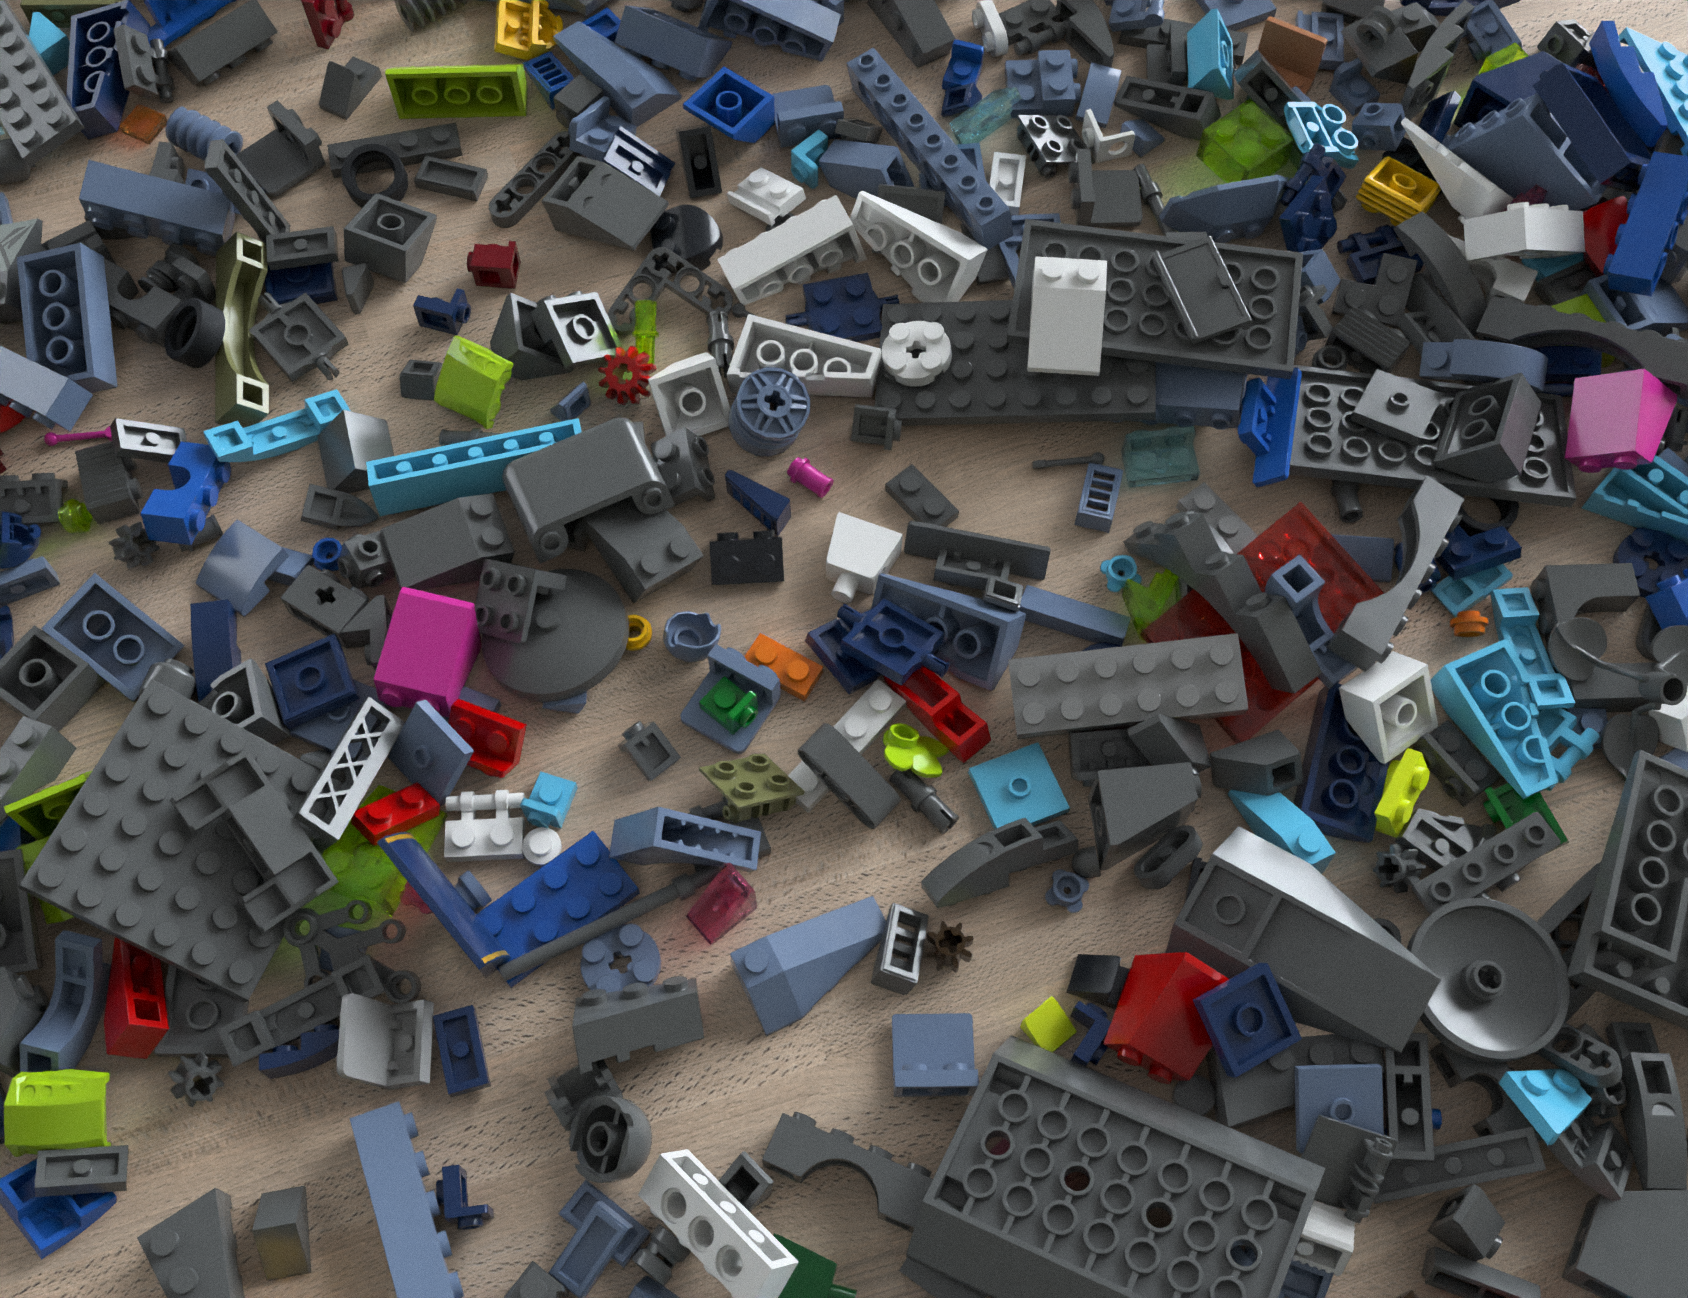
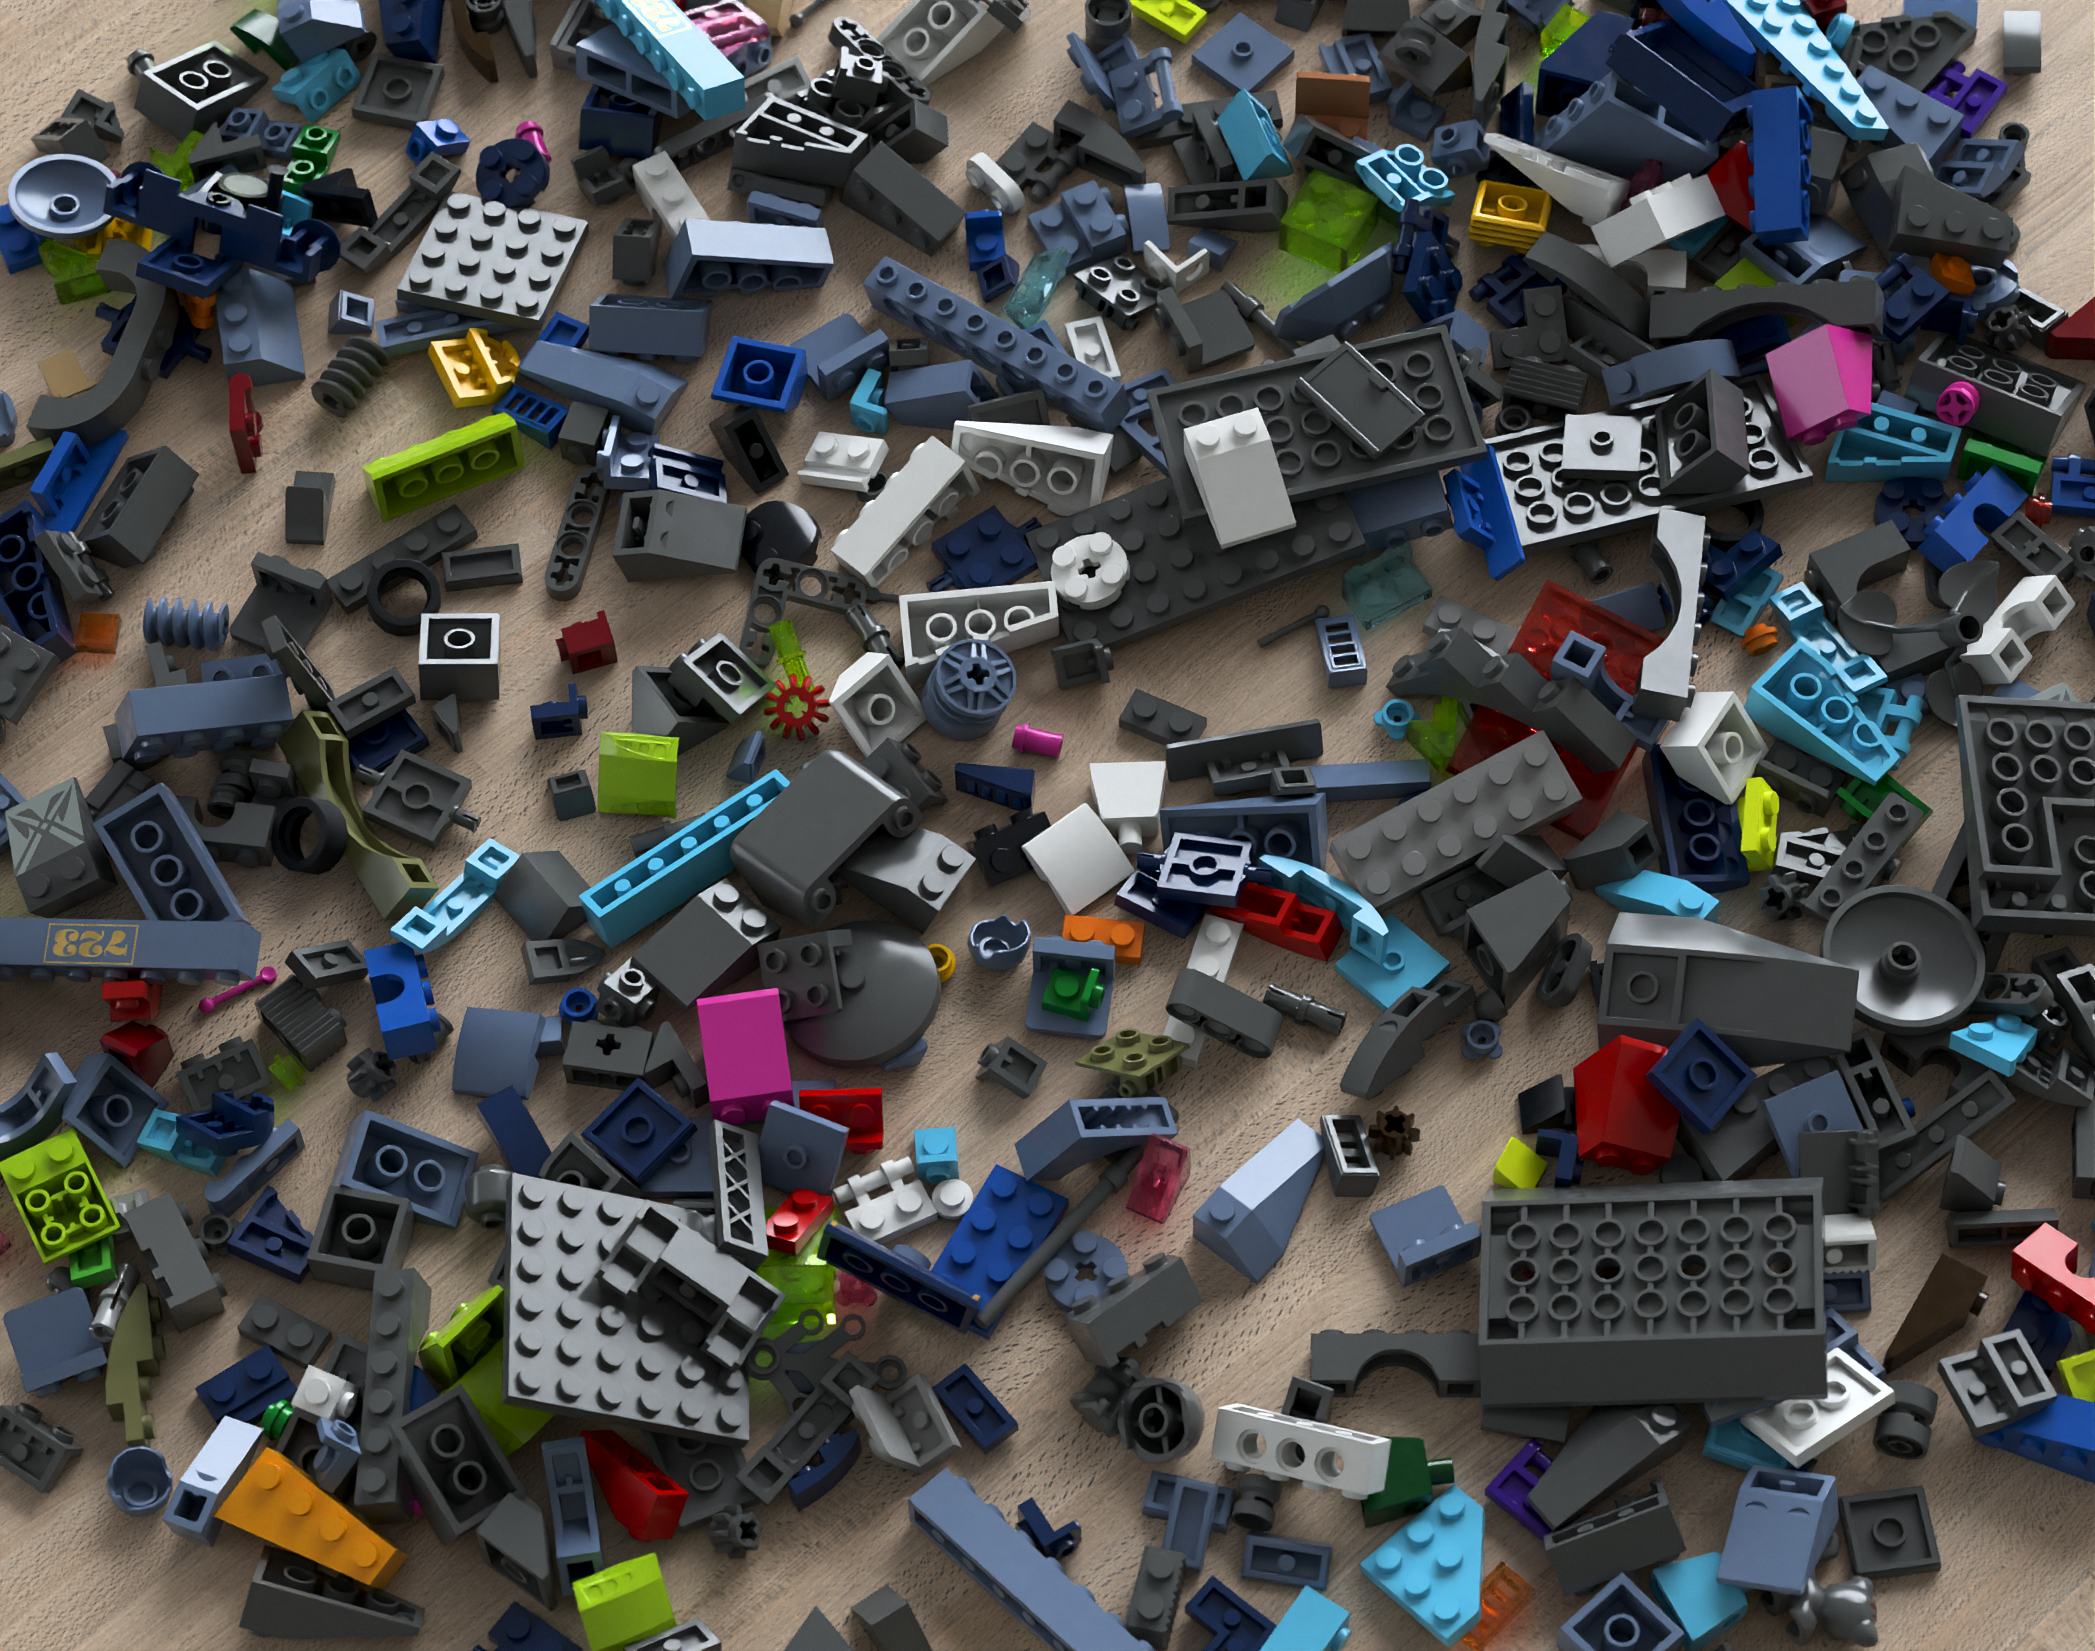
camera: 20 degrees left, 5 degrees down
(792, 589) = (1078, 859): none -> white slope
(914, 752) = (1273, 968): lime plate -> none
(992, 708) = (1325, 891): none -> medium azure slope

